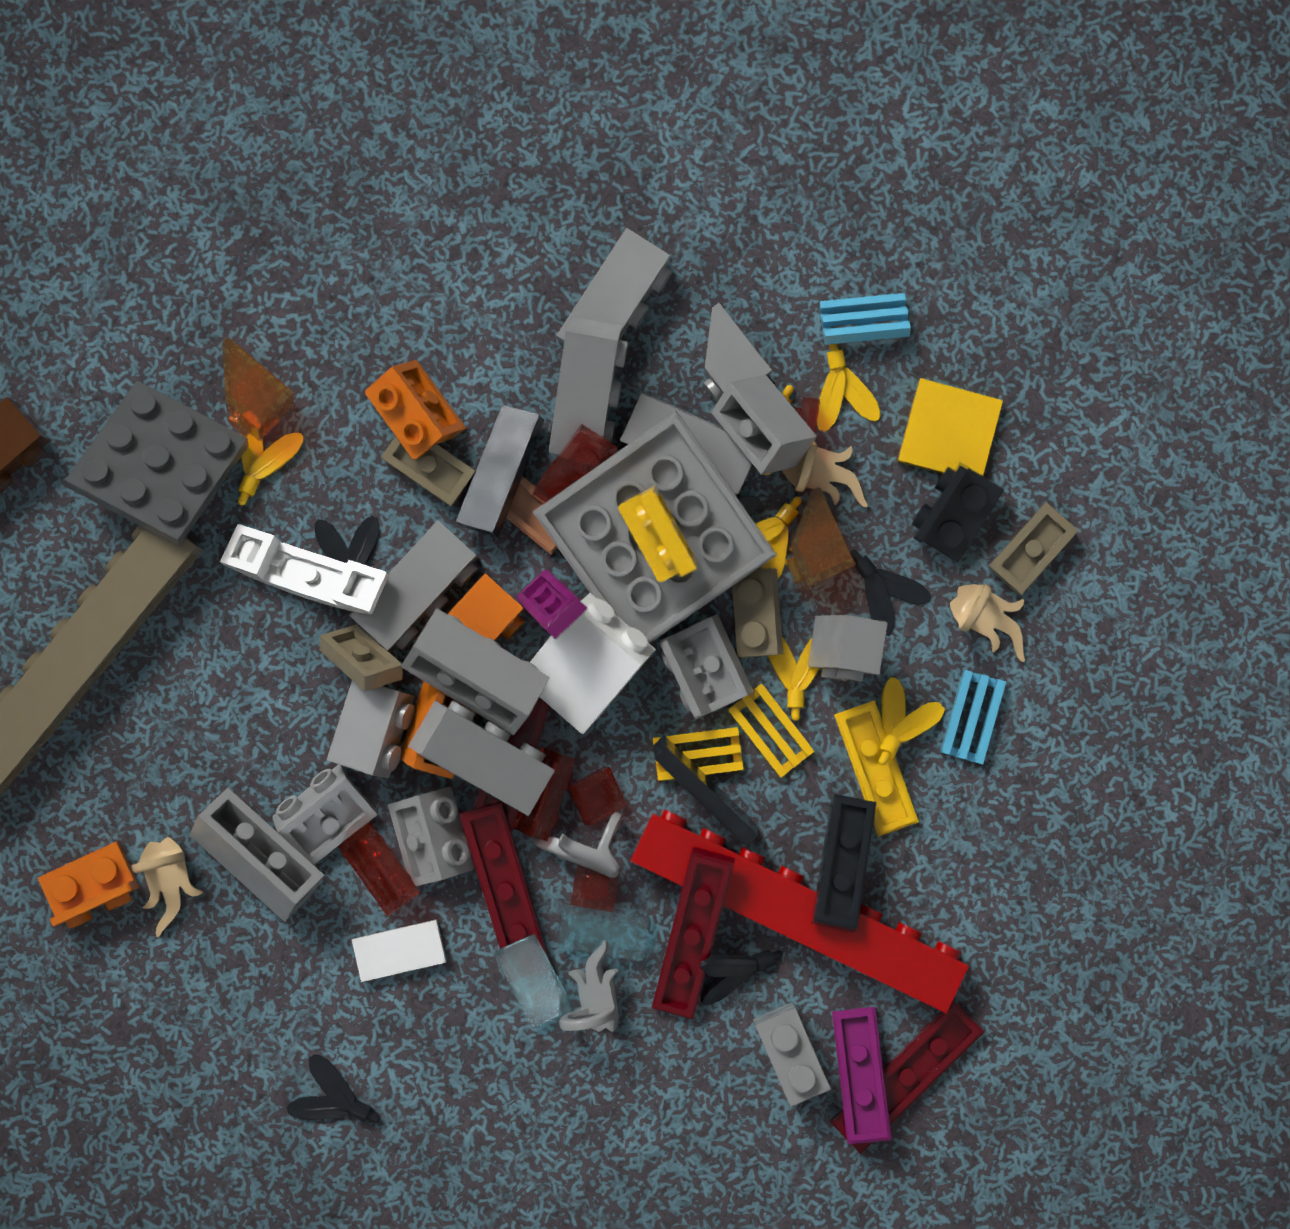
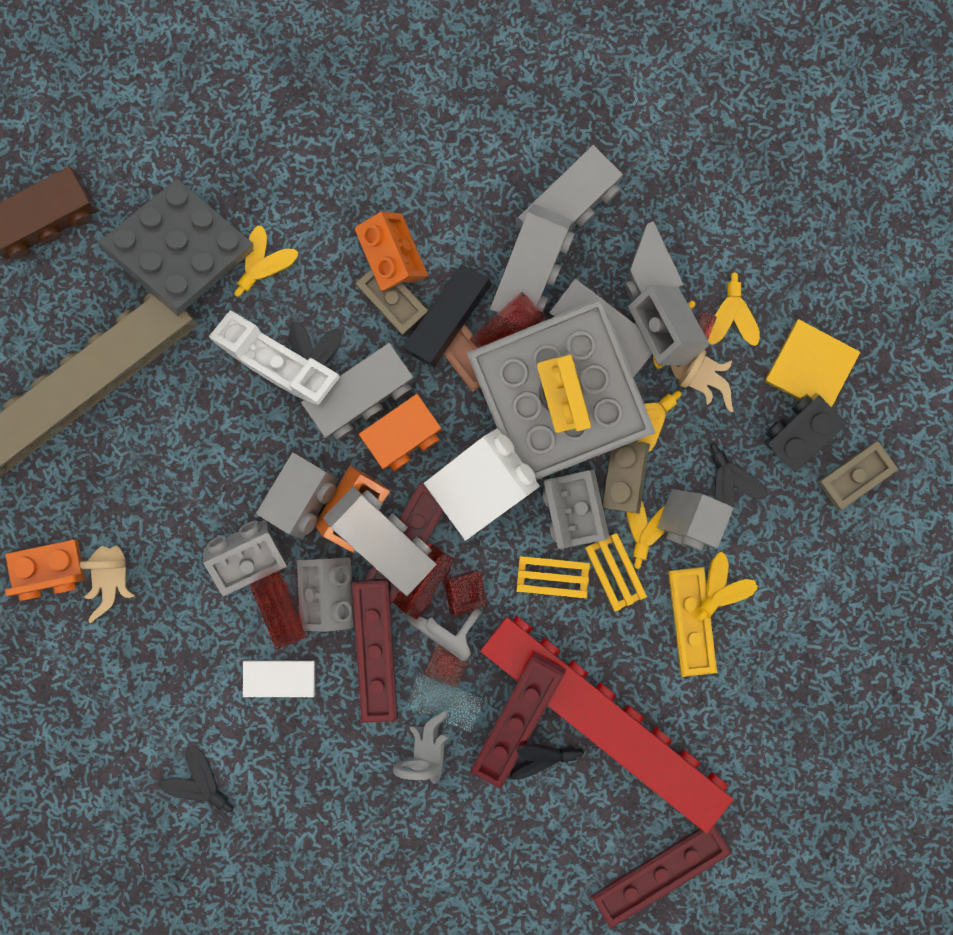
camera: 10 degrees right, 0 degrees up
(252, 393) = (265, 209): clear orange slope -> none
(256, 854) = (182, 576): light grey brick -> none
(361, 657) = (302, 438): dark tan plate -> none
(475, 671) = (391, 470): light grey brick -> none
(533, 981) = (380, 728): clear light blue tile -> none
(551, 603) = (465, 430): magenta tile -> none
(705, 790) = (552, 608): black tile -> none
(791, 1054) = (574, 836): light grey brick -> none
(817, 544) = (687, 432): clear orange slope -> none
(843, 863) = (651, 693): black tile -> none
(861, 1075) = (626, 867): magenta tile -> none
(863, 313) = (764, 257): medium azure tile -> none
(963, 752) = (791, 605): medium azure tile -> none
(983, 611) = (807, 516): tan piece -> none

